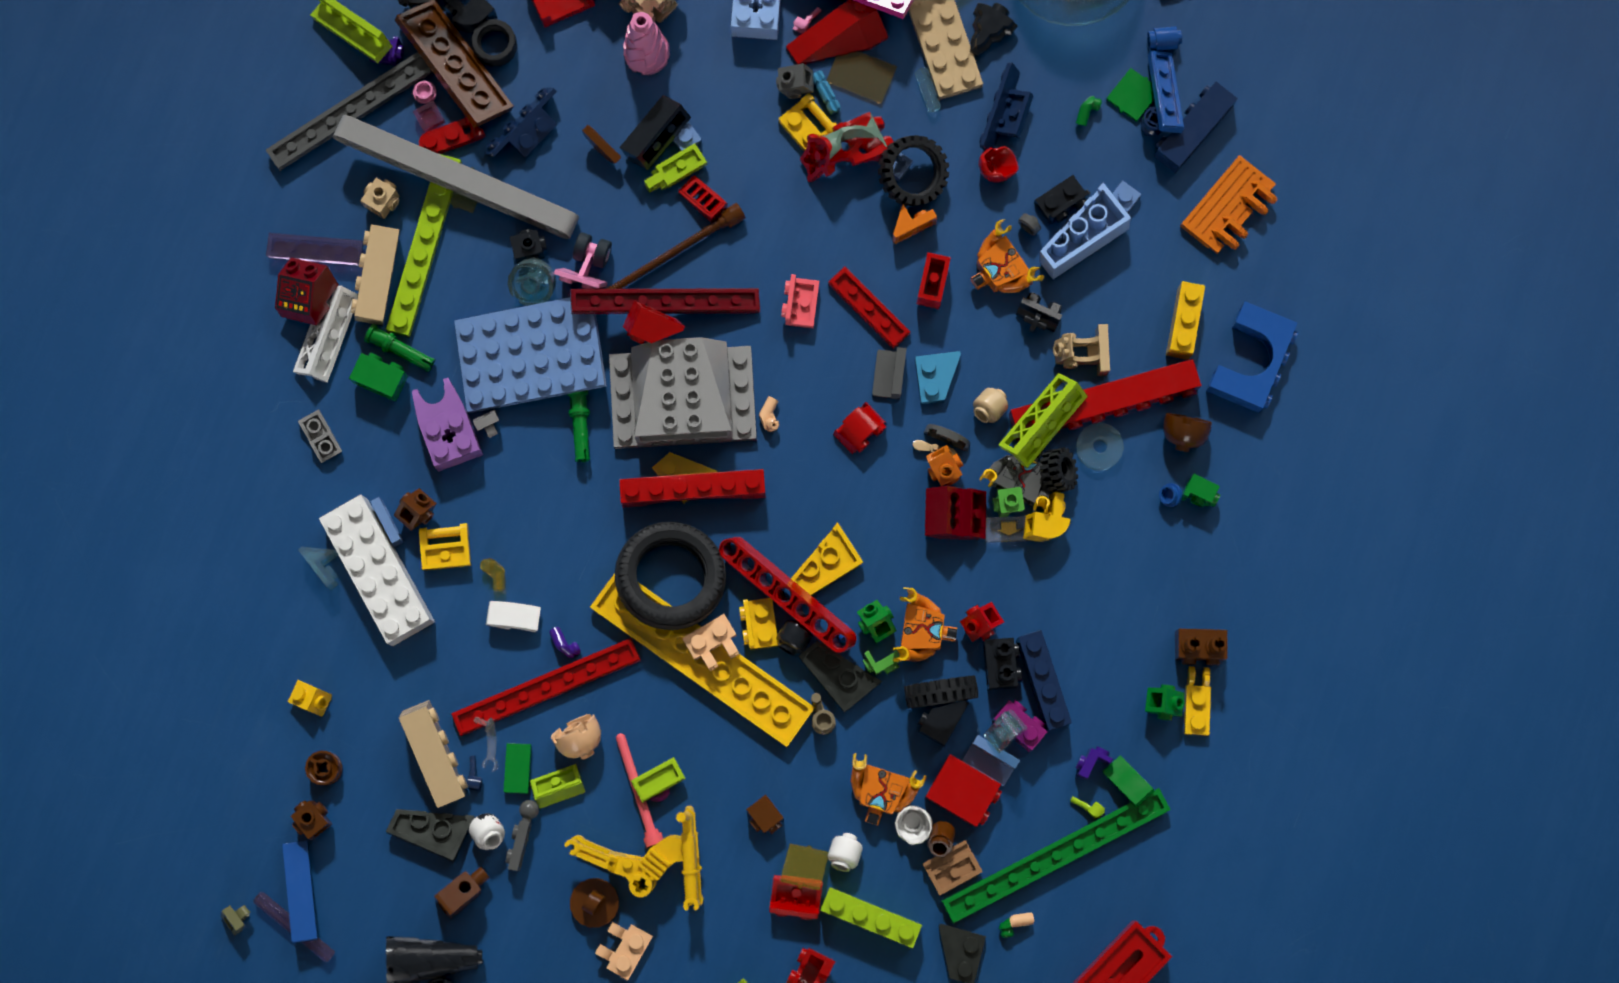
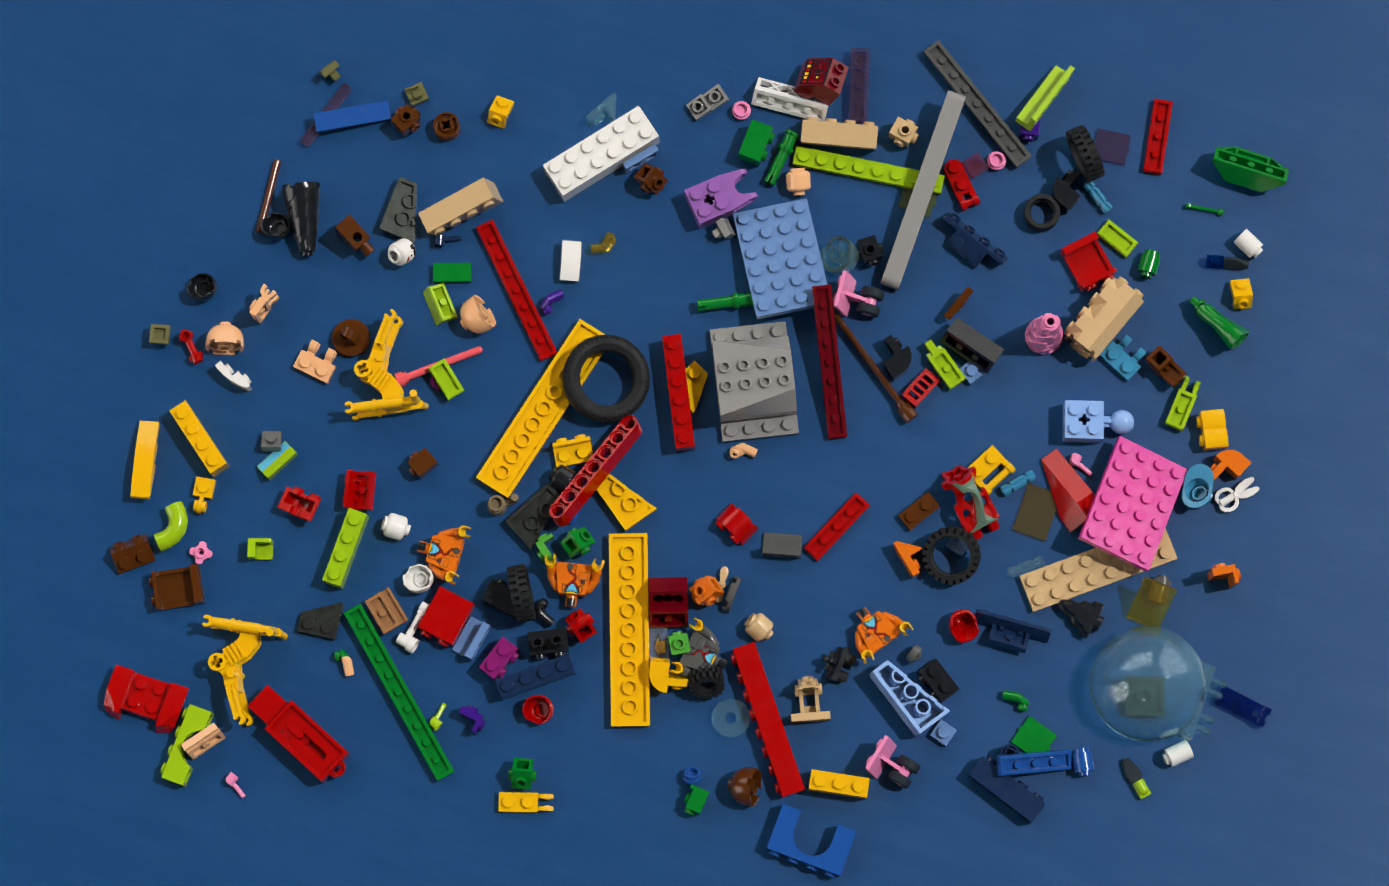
camera: 90 degrees right, 0 degrees up
(277, 806) = (416, 94): none -> olive tile
(334, 394) = (741, 110): none -> bright pink plate
(432, 328) = (798, 181): none -> light nougat head
(445, 554) = (617, 207): yellow plate -> none
(454, 63) = (1020, 181): reddish brown plate -> none
(491, 741) = (471, 251): clear piece -> none
(528, 811) = (399, 278): dark grey plate -> none
(649, 324) = (805, 349): red slope -> none
(667, 218) = (900, 361): none -> black brick
(709, 637) = (558, 411): light nougat plate -> none
(795, 80) = (1023, 456): dark grey brick -> none
(801, 302) = (837, 470): coral bracket -> none
(804, 866) = (383, 495): clear yellow piece -> none
(854, 209) = (919, 511): none -> reddish brown plate
(933, 280) = (859, 575): red brick -> none
(935, 375) = (782, 582): dark azure wing -> none
(941, 839) = (407, 600): reddish brown brick -> none
(964, 670) = (540, 607): none -> black arm
(987, 563) = (629, 630): none -> yellow plate
(990, 842) = (407, 640): none -> white brick
(1005, 730) = (493, 644): clear light blue slope -> none
(1047, 421) = (743, 669): lime fence -> none
(1084, 679) = (538, 709): none -> red hair
(1128, 781) = (458, 746): green tile -> none
(1177, 247) = (881, 757): none -> bright pink plate
(1201, 645) = (569, 803): reddish brown brick -> none
(1227, 206) = (943, 819): orange hinge -> none

